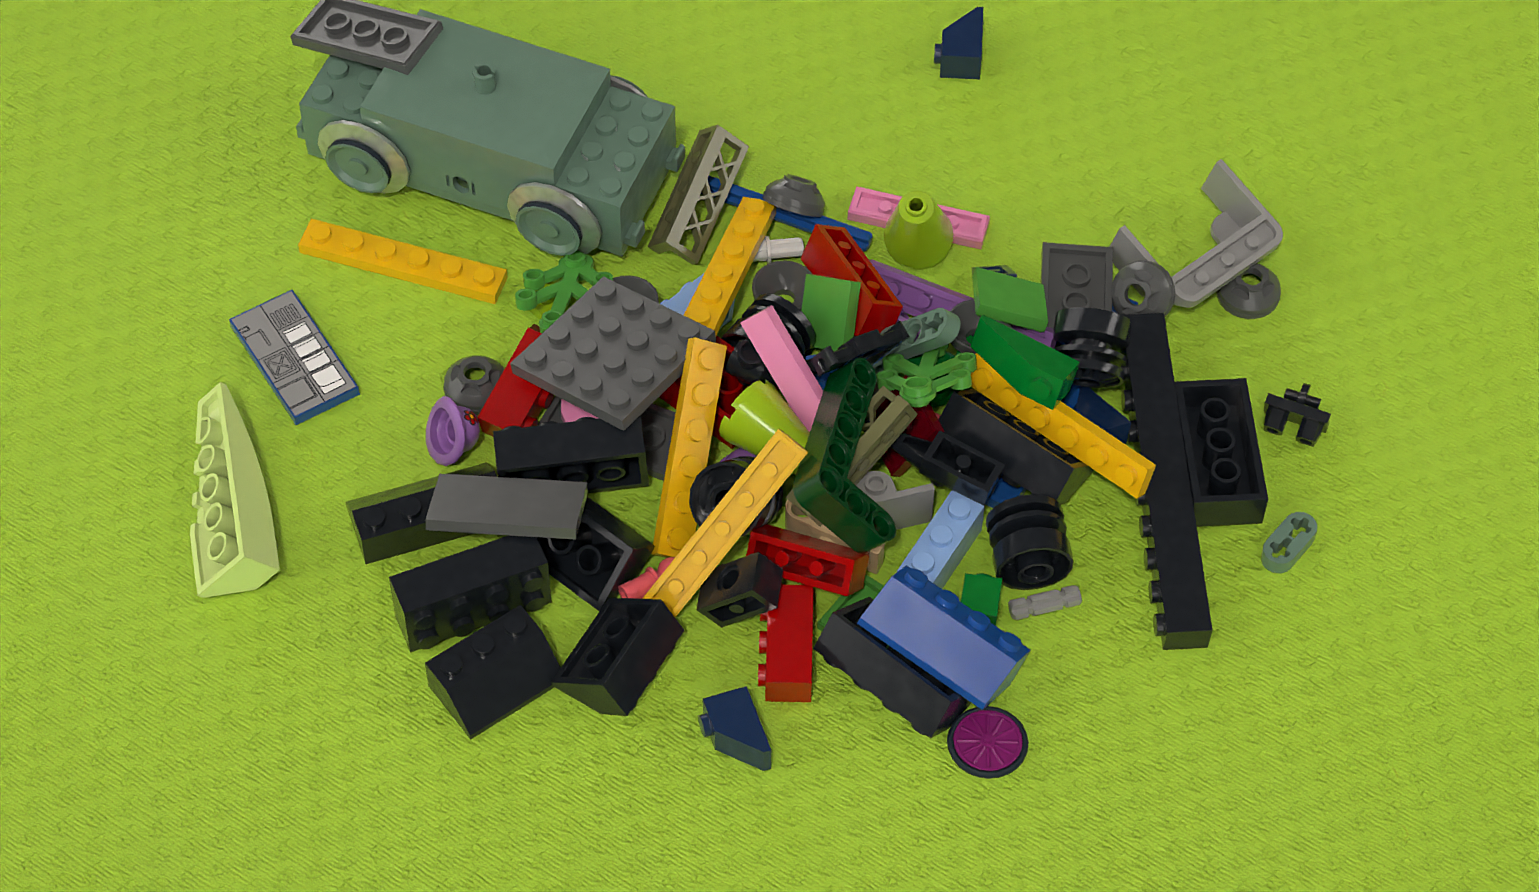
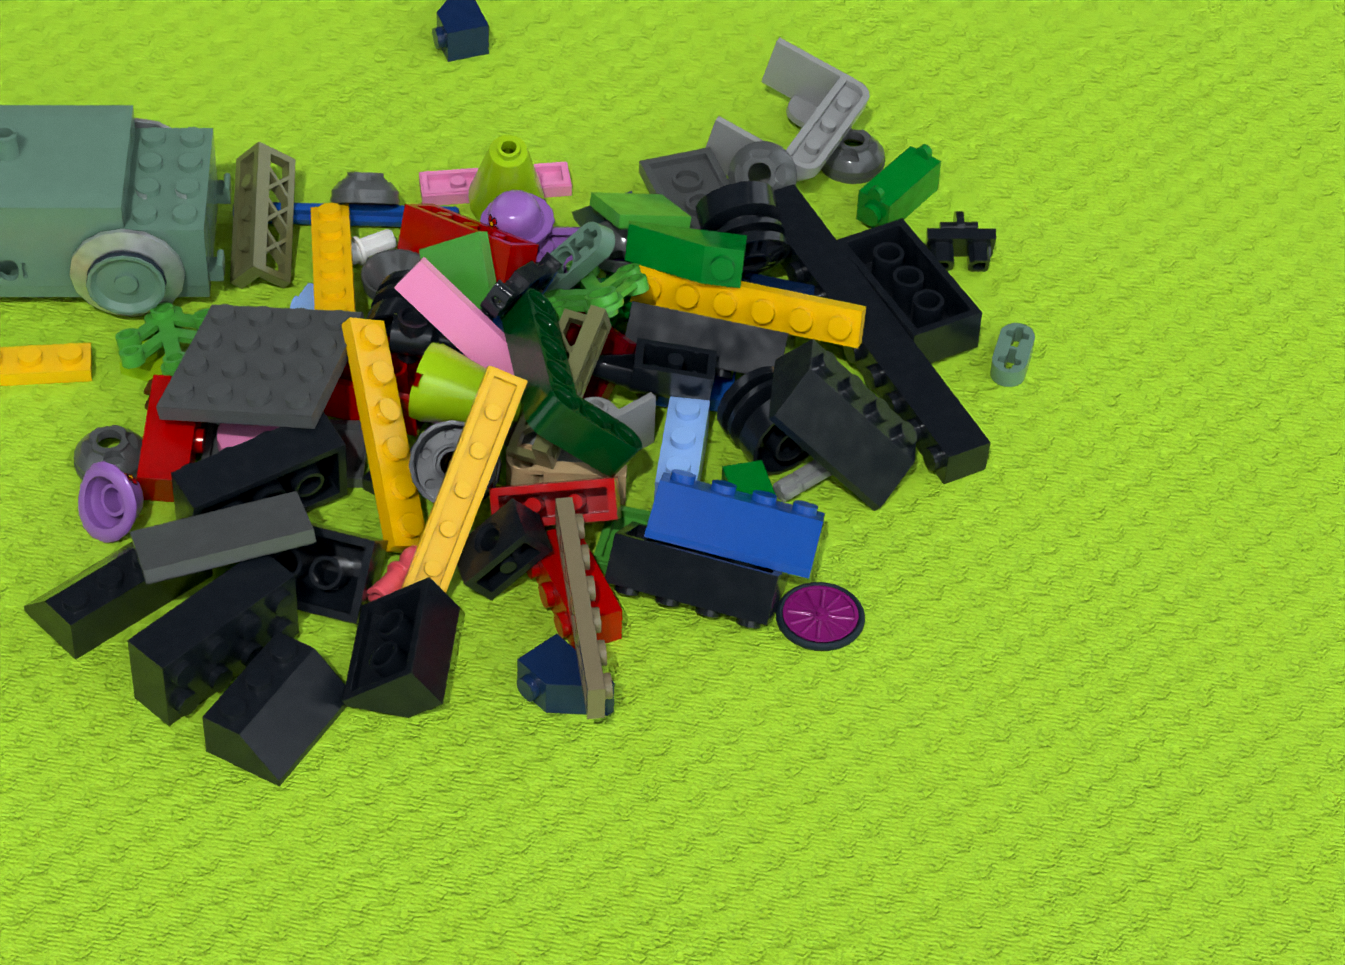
camera: 25 degrees left, 10 degrees down
(769, 684) = (584, 619): none -> dark tan plate
(907, 270) = (520, 215): none -> medium lavender hat
(1077, 573) = (841, 423): none -> black slope
(1270, 340) = (899, 187): none -> green brick

